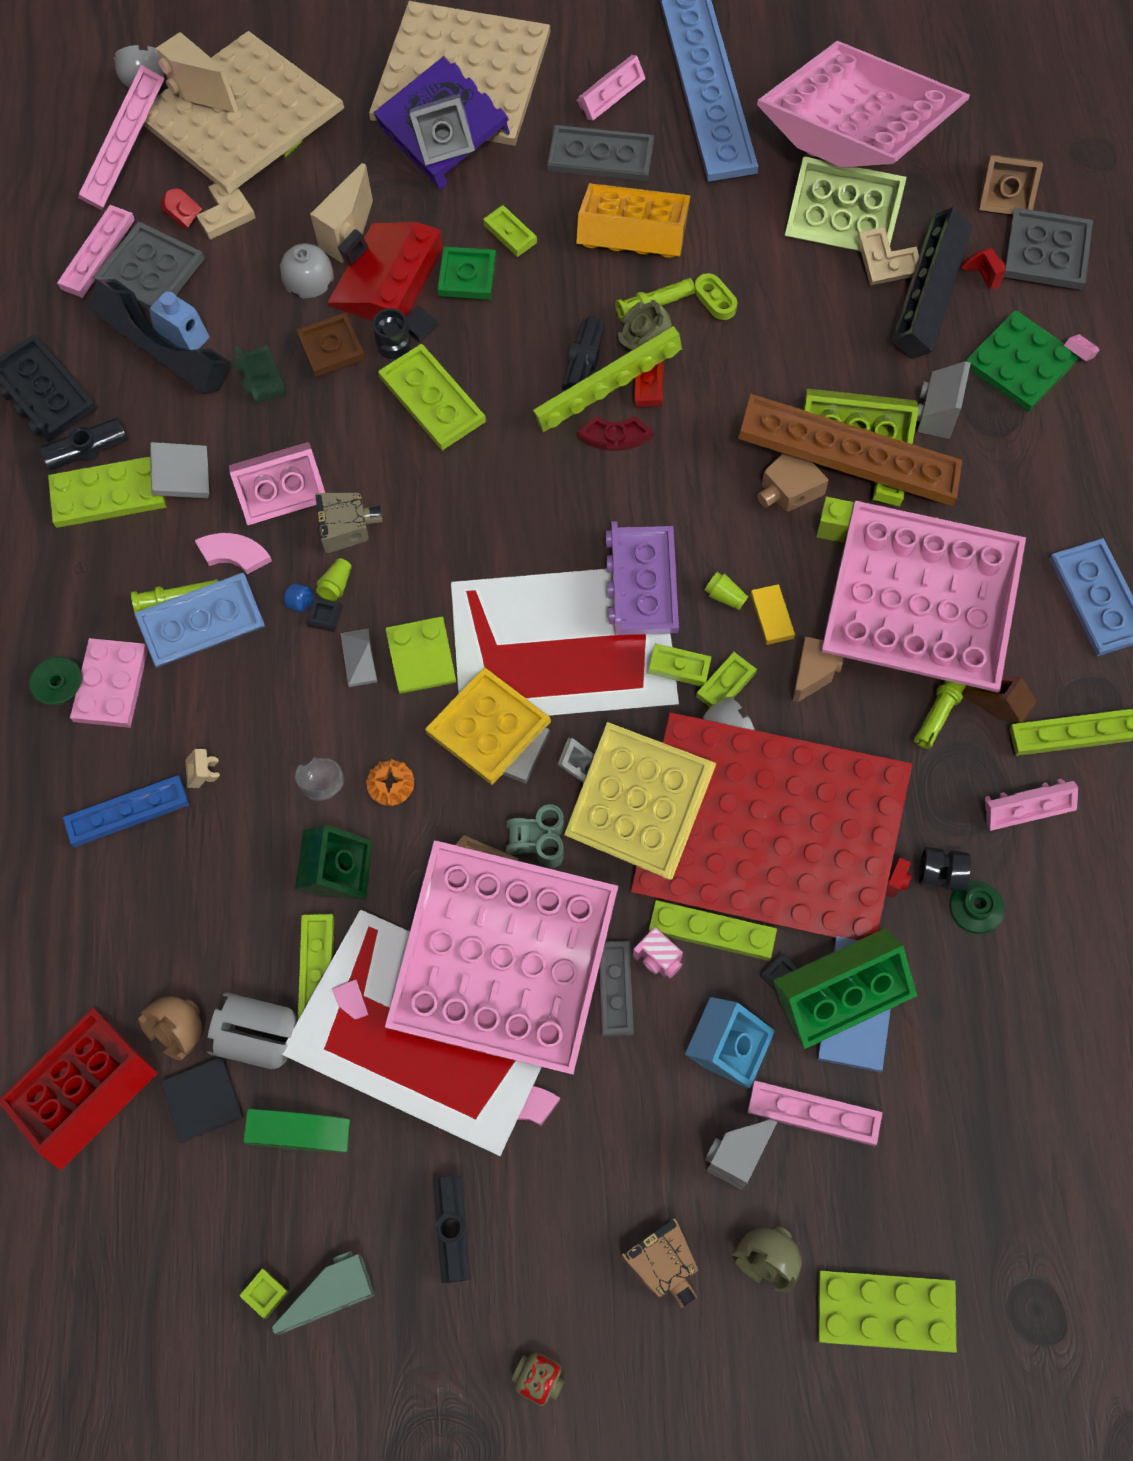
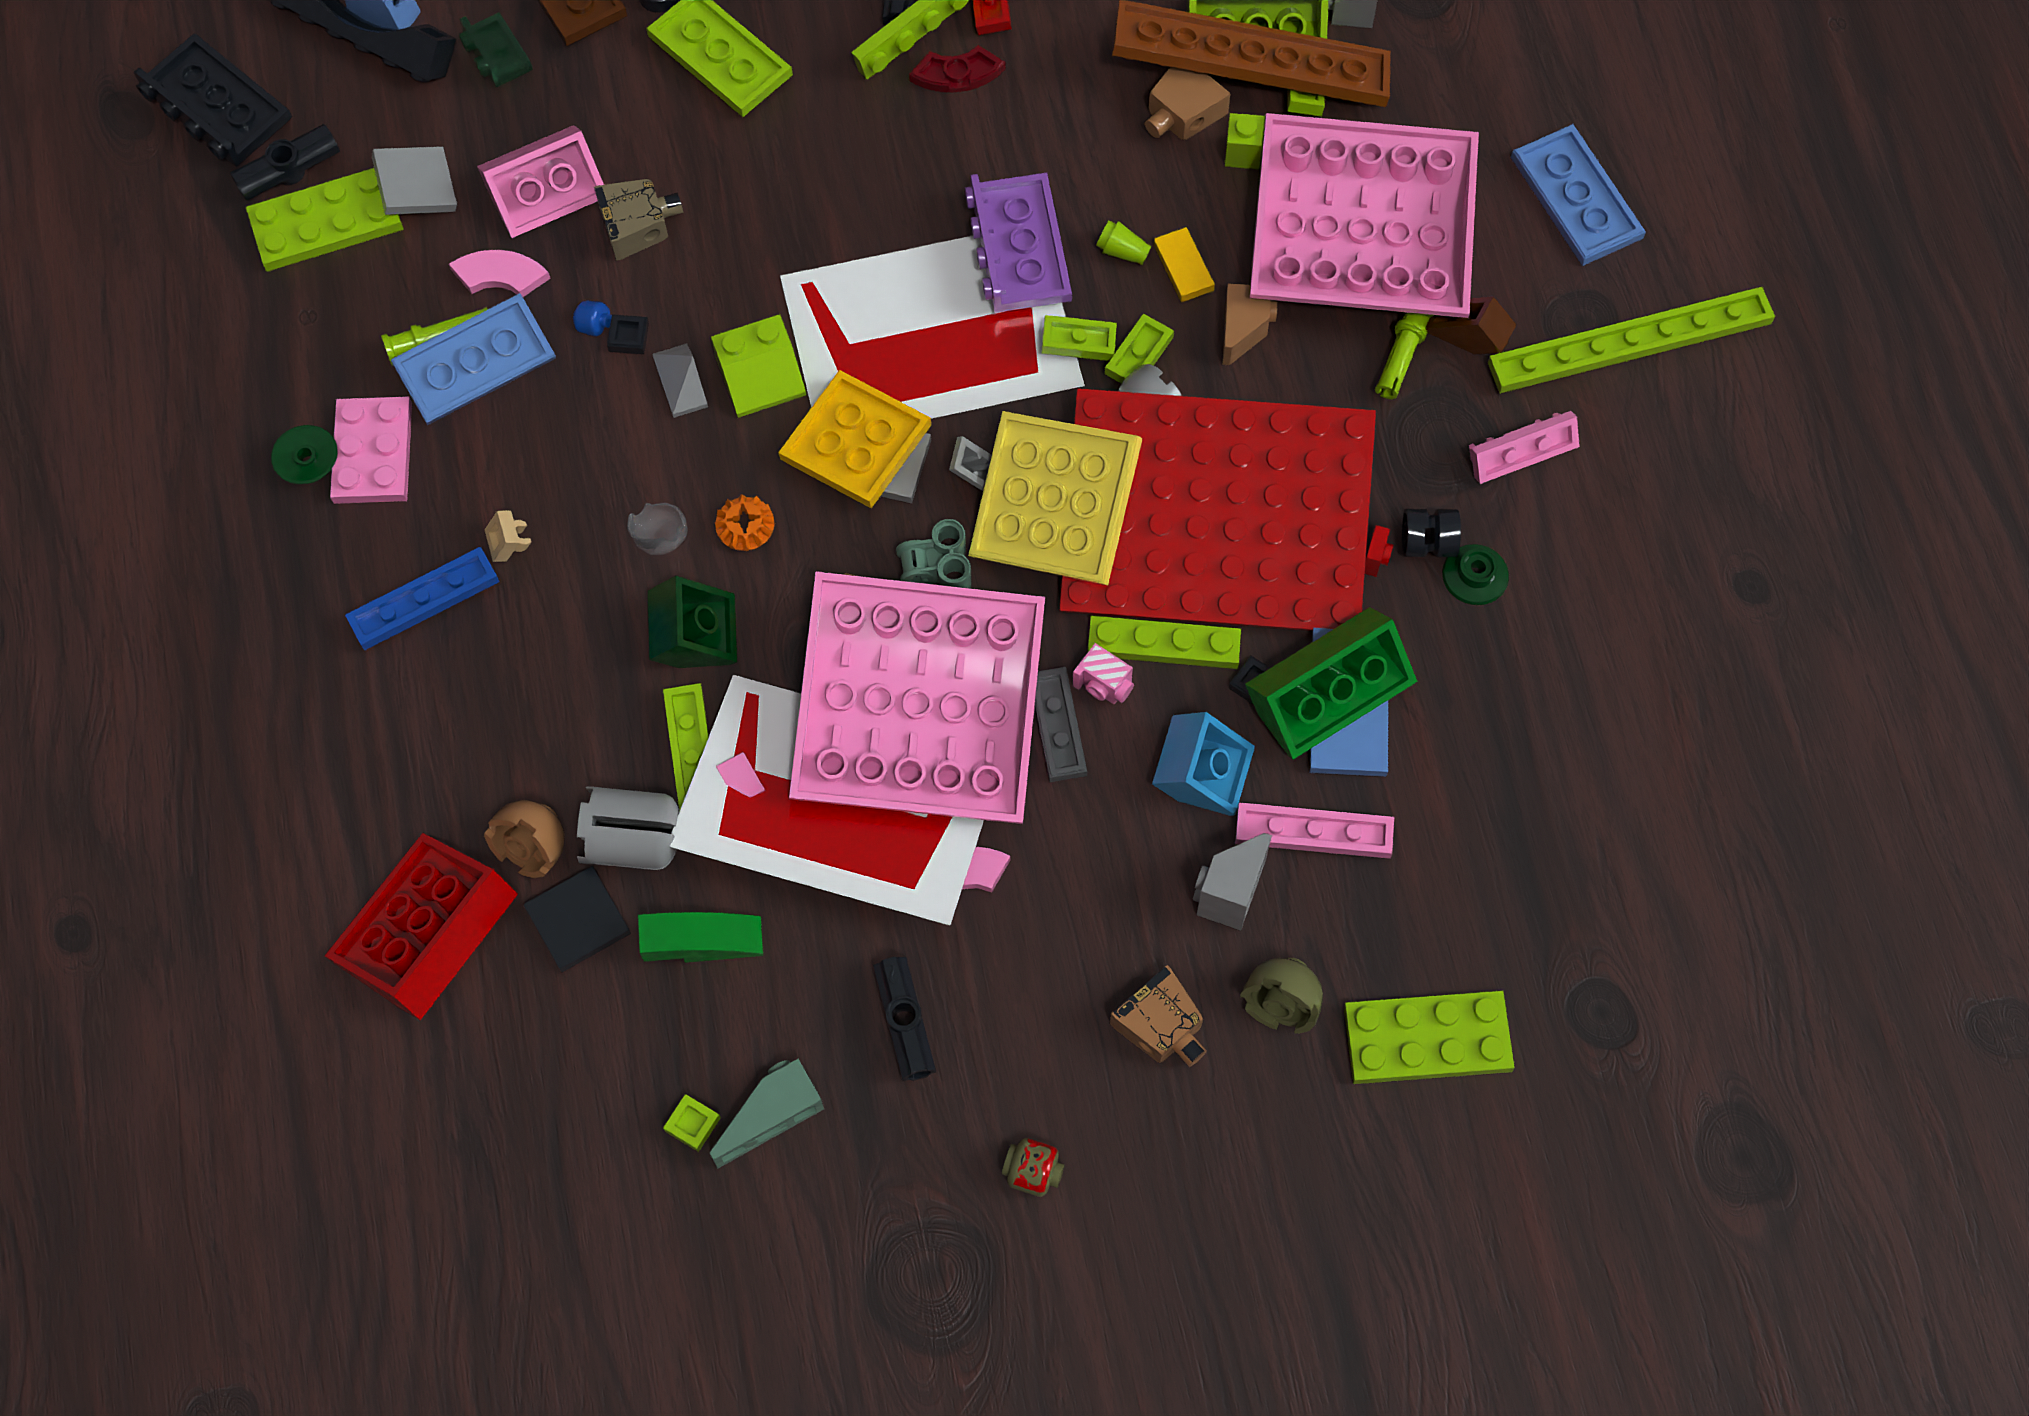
camera: 10 degrees left, 0 degrees up
(334, 580) = (634, 291): lime cone -> none

